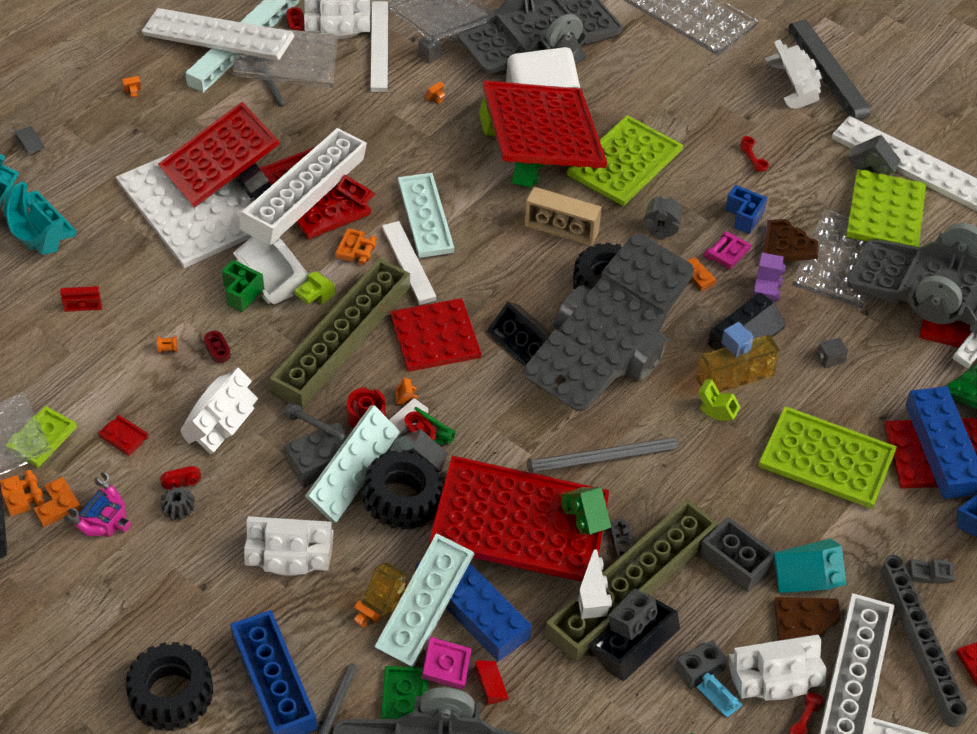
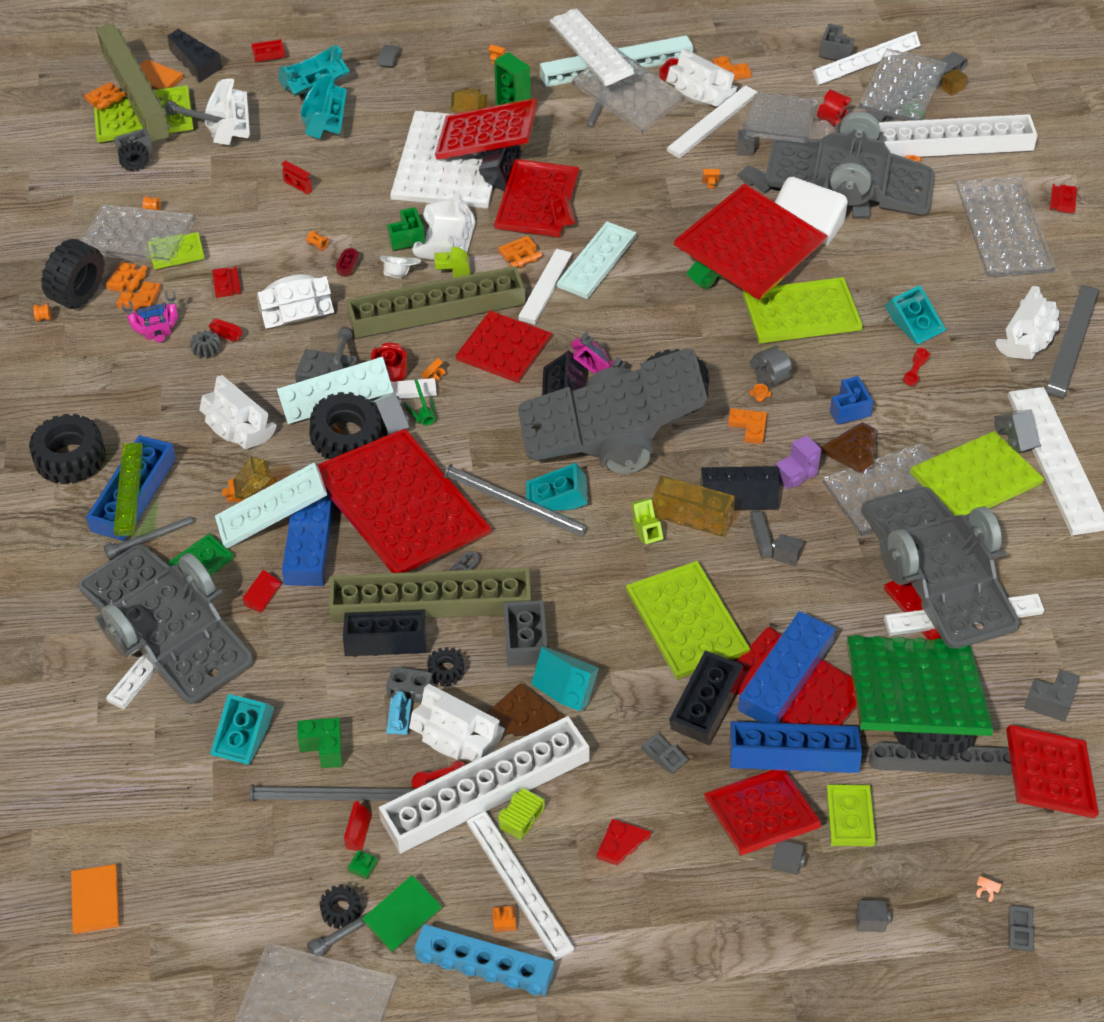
camera: 45 degrees right, 0 degrees up
(165, 139) = (467, 100): none -> clear yellow brick
(198, 101) = (511, 79): none -> green brick
(270, 320) = (397, 266): none -> white piece
(284, 678) = (128, 489): none -> clear neon green plate
(302, 186) = (516, 182): white brick -> none
(422, 423) = (409, 398): red plate -> none
(446, 663) = (245, 558): dark pink plate -> none
(468, 72) = (754, 176): none -> dark grey slope
(523, 295) = (592, 355): none -> dark pink torso
(562, 216) = (692, 319): tan brick -> none
(589, 508) = (443, 522): green brick -> none
(592, 594) = (377, 576): white slope -> none
(621, 422) = (559, 489): none -> teal slope
(633, 614) = (390, 612): dark grey brick -> none
(671, 243) = (760, 392): none -> orange plate
(708, 114) = (915, 315): none -> teal slope
(709, 617) = (446, 656): none -> black tyre
(731, 253) = (801, 424): dark pink plate -> none
(737, 339) = (698, 480): medium blue brick -> none
(815, 362) = (761, 534): none -> dark grey beam
(895, 574) = (590, 799): dark grey beam -> none
(898, 697) = (521, 813): none -> lime brick
(919, 504) = (706, 697): none -> black brick

